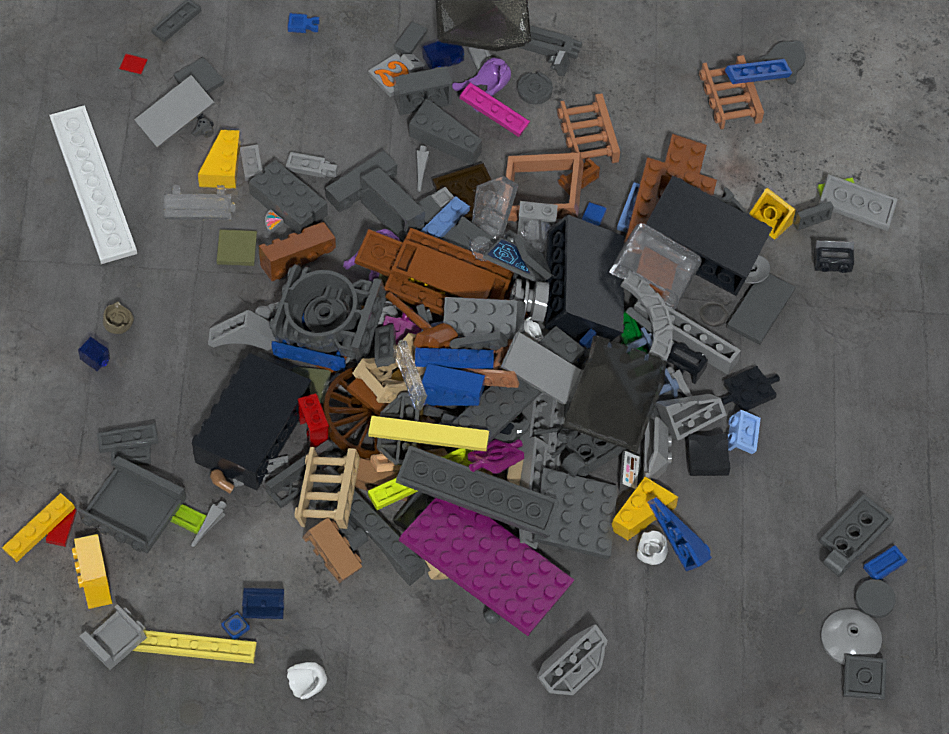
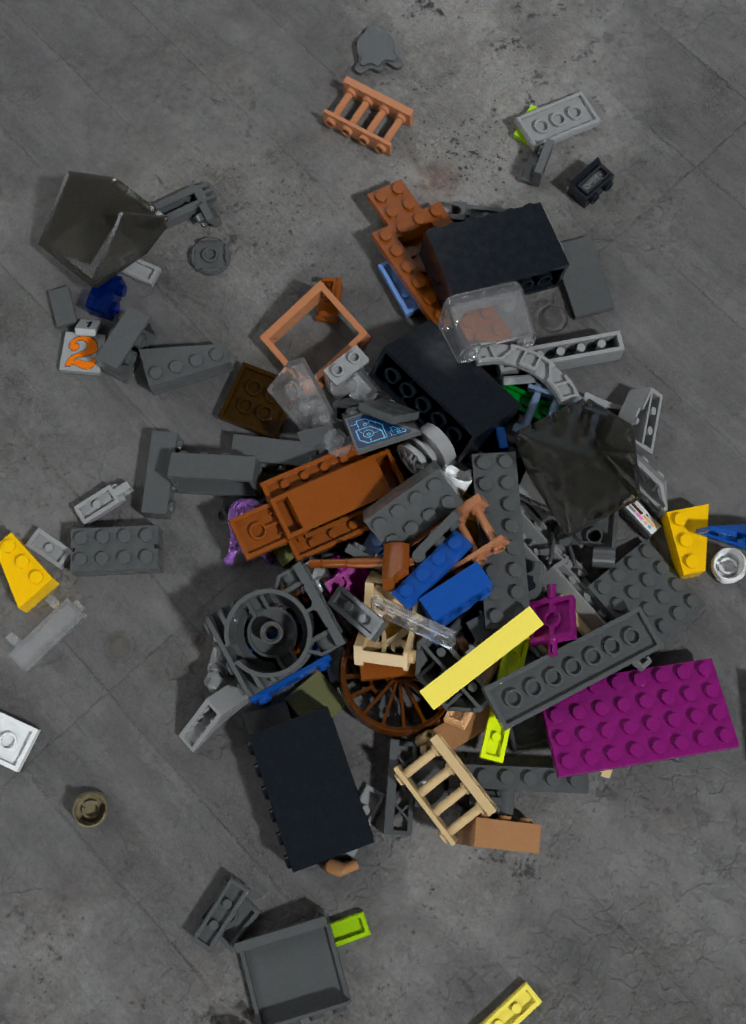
camera: 40 degrees left, 15 degrees up
(94, 354) = (106, 865): clear blue brick -> none
(214, 515) = (368, 905): light grey piece -> none
(235, 626) = (493, 985): tile -> none
(237, 247) = (120, 638): olive tile -> none
(263, 603) = (497, 943): dark blue hinge -> none
(272, 221) = (125, 584): tile -> none
(296, 249) = (177, 592): dark orange wedge -> none
(306, 679) = (607, 973): white hair -> none
(313, 415) = (365, 737): red window -> none
(422, 159) = (191, 409): light grey piece -> none
(442, 197) = (247, 425): light grey tile -> none
(446, 218) = (272, 445): medium blue plate -> none
(493, 73) = (167, 275): medium lavender hair -> none
(494, 109) = (201, 306): dark pink plate -> none
(541, 368) = (508, 507): light grey tile -> none
(594, 214) = (378, 328): blue tile -> none
(603, 120) = (297, 235): nougat fence -> none
(687, 360) = (586, 376): black window -> none
(708, 455) = (683, 442): black brick -> none
(743, 431) = (684, 397): light blue bracket -> none
(750, 389) = (649, 355): black plate -> none
(758, 71) = (374, 79): blue plate -> none
(774, 212) = (509, 189): yellow slope -> none

